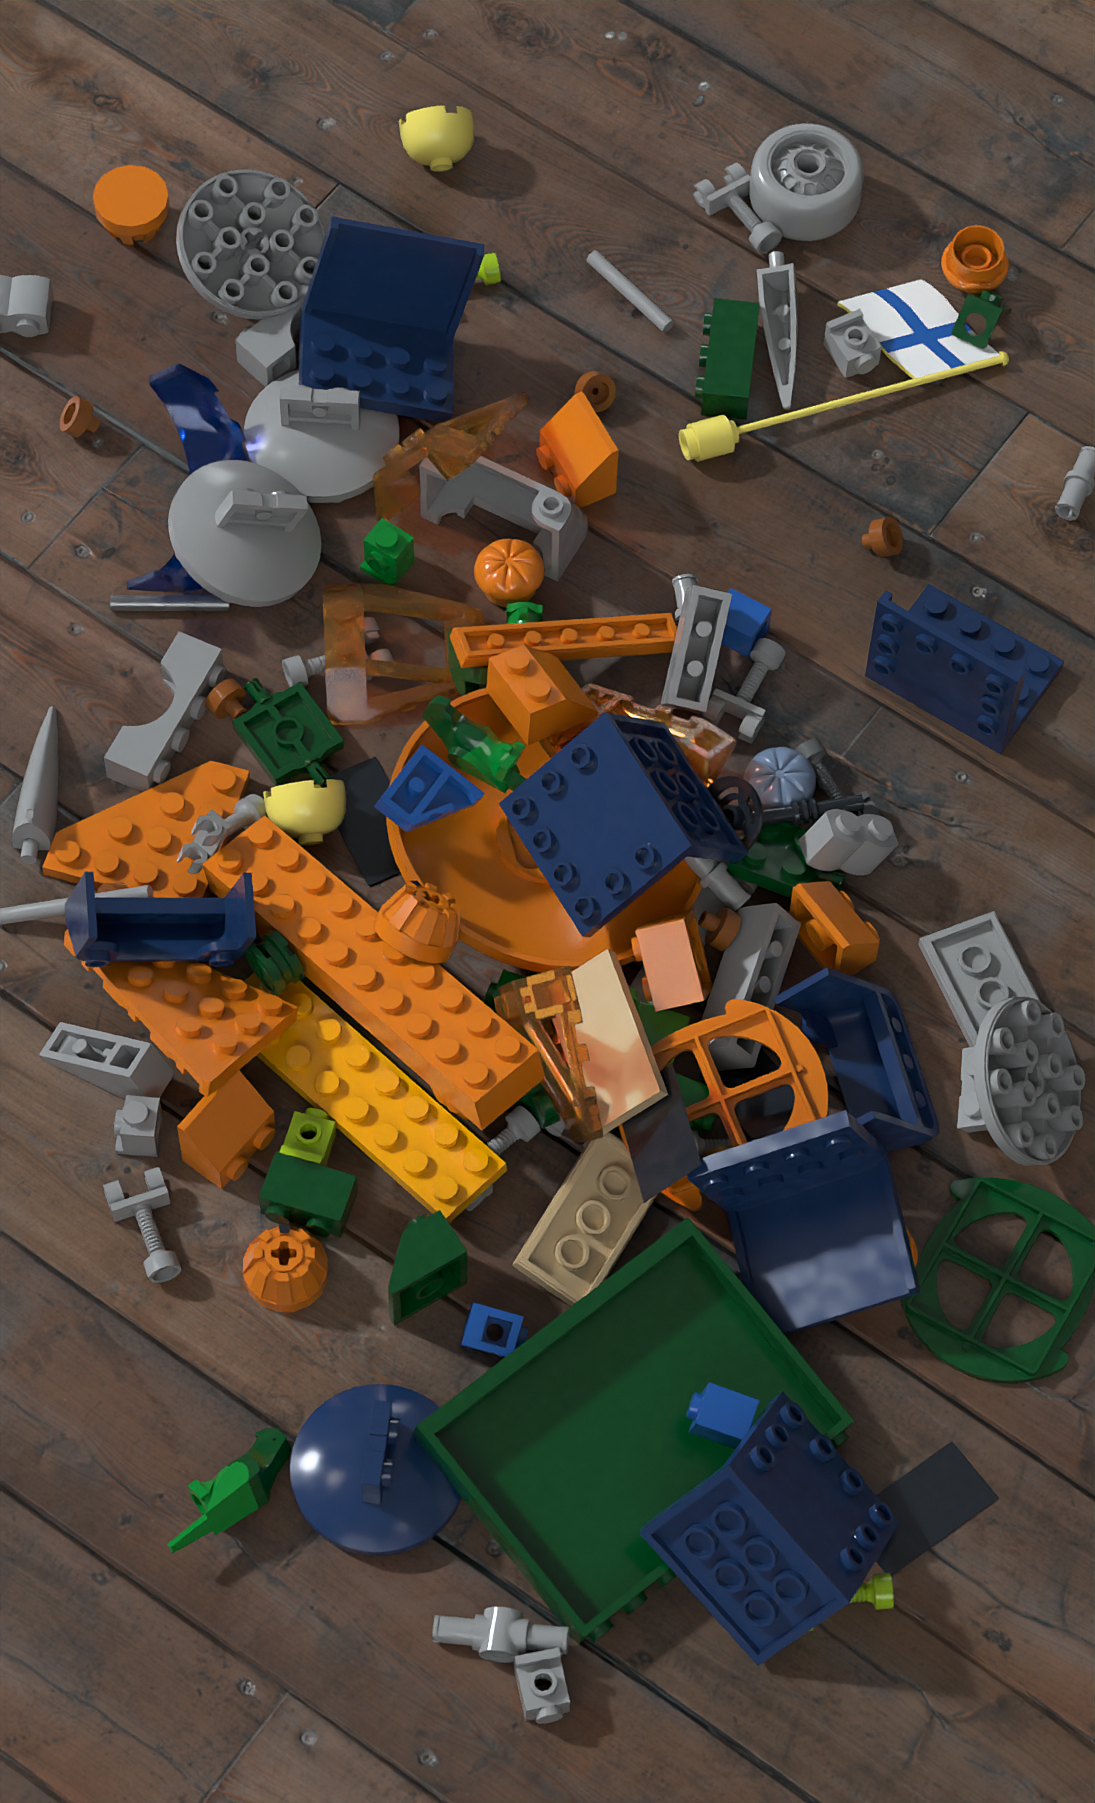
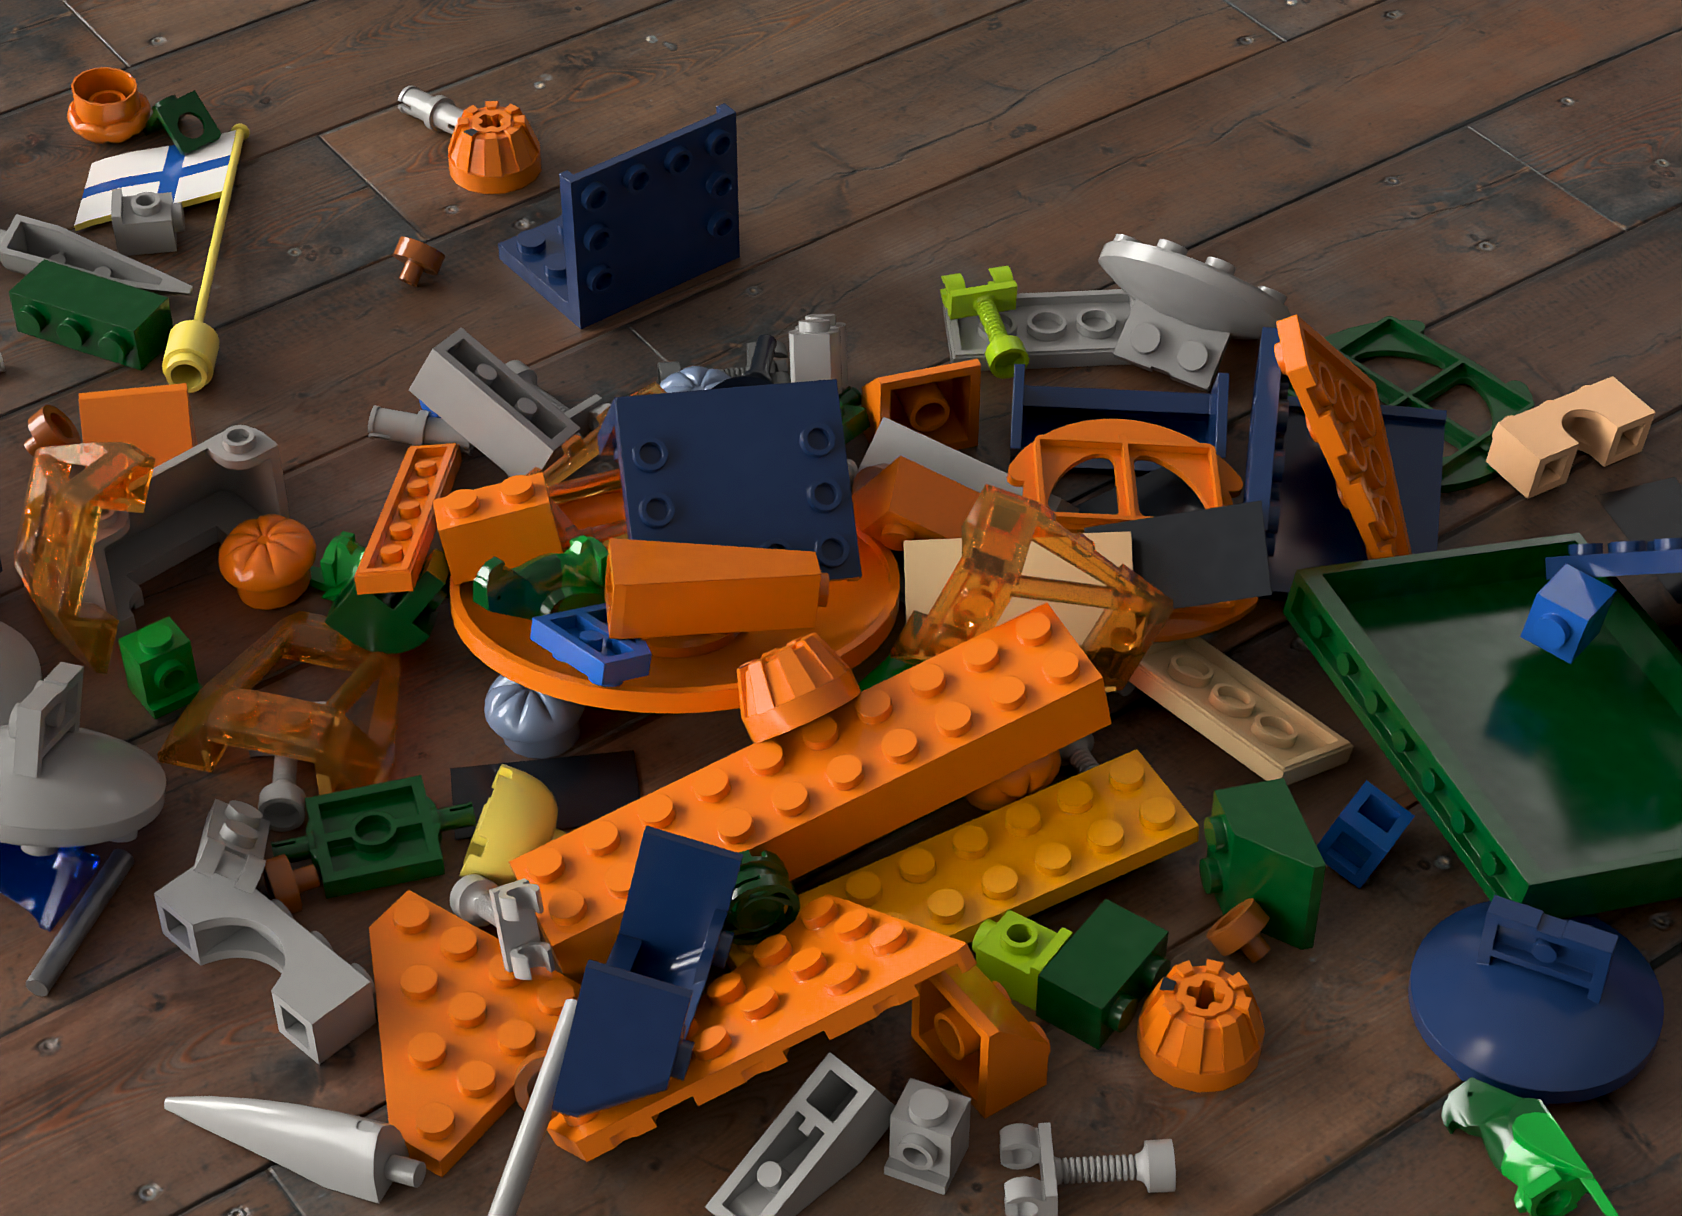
camera: 70 degrees left, 20 degrees down
(231, 657) = (233, 844): none -> light grey plate
(375, 1270) = (1241, 930): none -> dark orange tile
(495, 837) = (709, 589): none -> orange slope
(816, 1216) = (1349, 426): none -> orange plate
(929, 972) = (986, 303): none -> lime bar
(965, 1375) = (1540, 444): none -> light nougat arch
(1044, 540) = (494, 150): none -> orange piece

